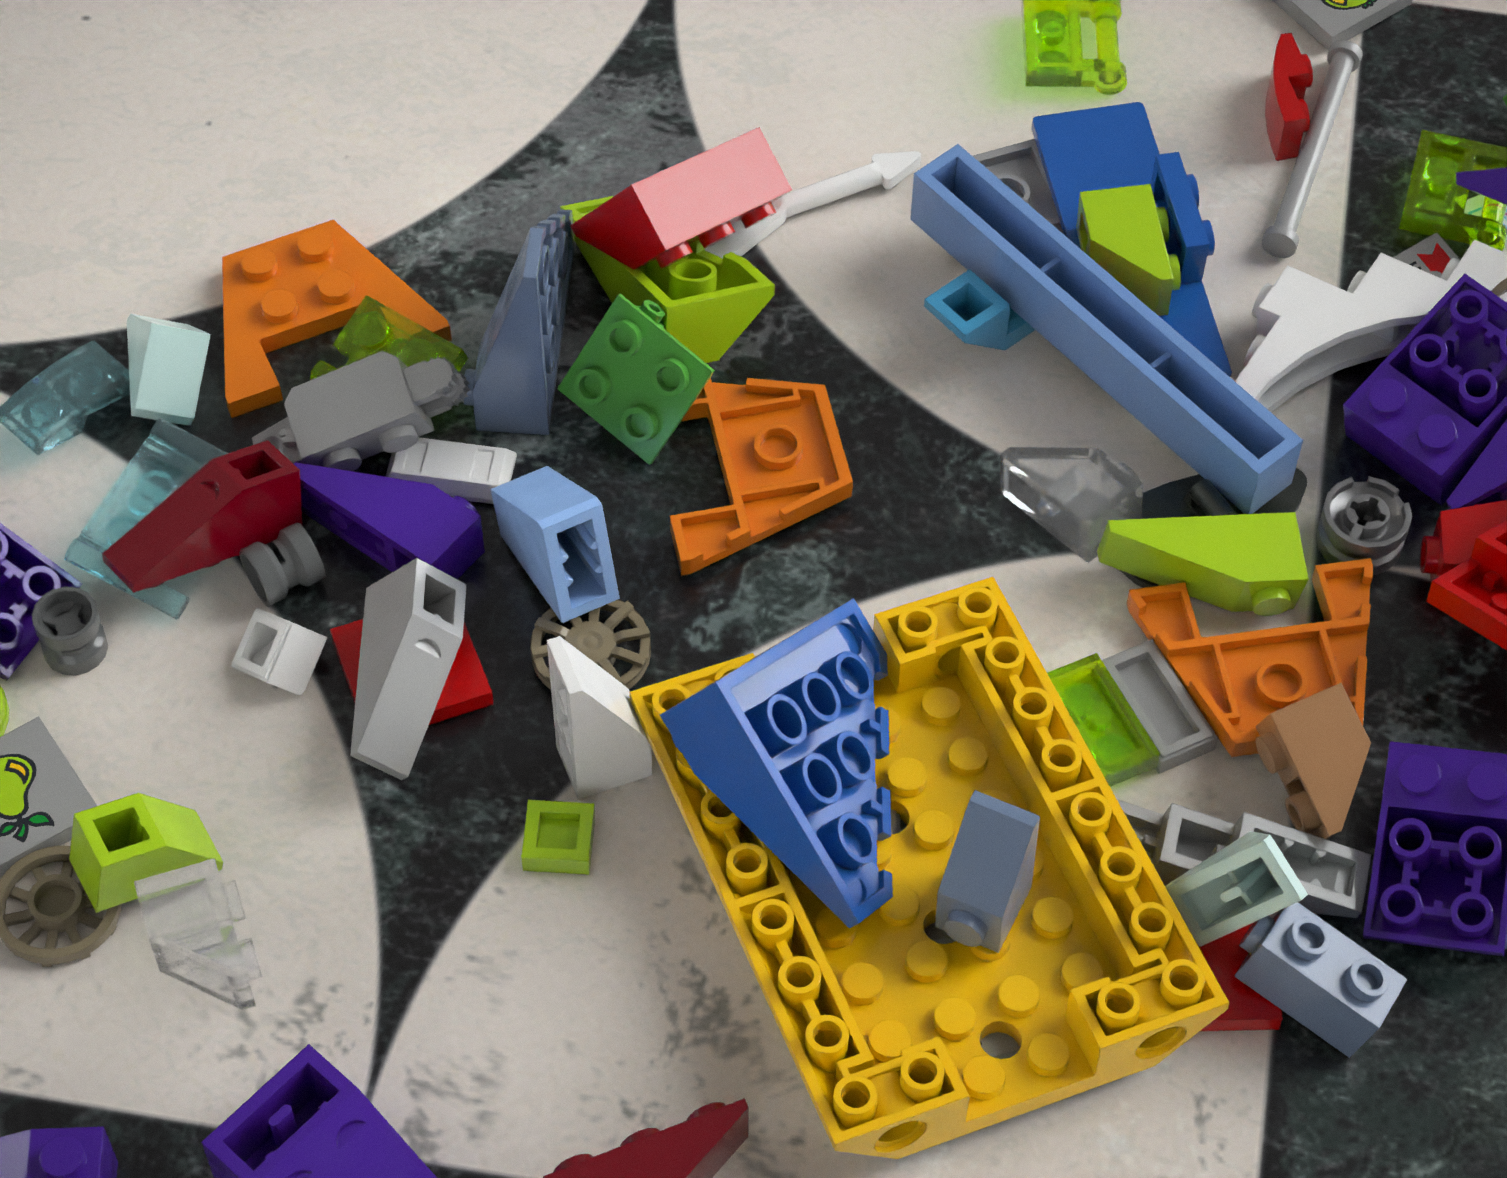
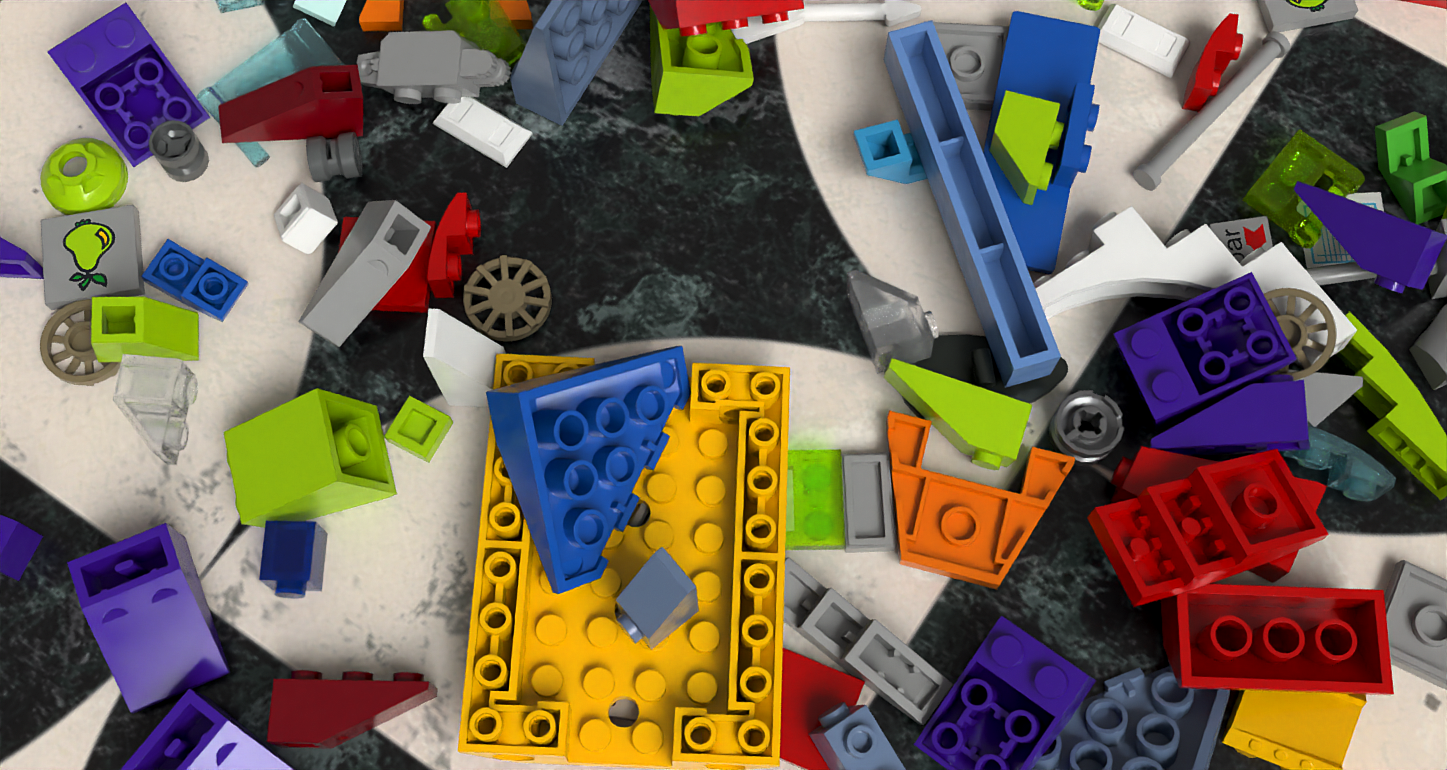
camera: 25 degrees right, 15 degrees up
(191, 775) = (194, 281): none -> blue slope
(393, 518) = (423, 155): dark purple slope -> none
(438, 920) = (308, 459): none -> lime slope
(482, 1039) = (293, 557): none -> clear blue brick
(491, 591) = (451, 240): none -> red slope
(558, 540) = (510, 215): light blue slope -> none
(636, 377) = (626, 111): bright green hinge -> none
(777, 464) = (699, 206): orange wing -> none
(1193, 102) = (1142, 40): none -> white tile
(1235, 888) = (835, 677): light aqua slope -> none
(1319, 758) = (952, 600): medium nougat slope -> none

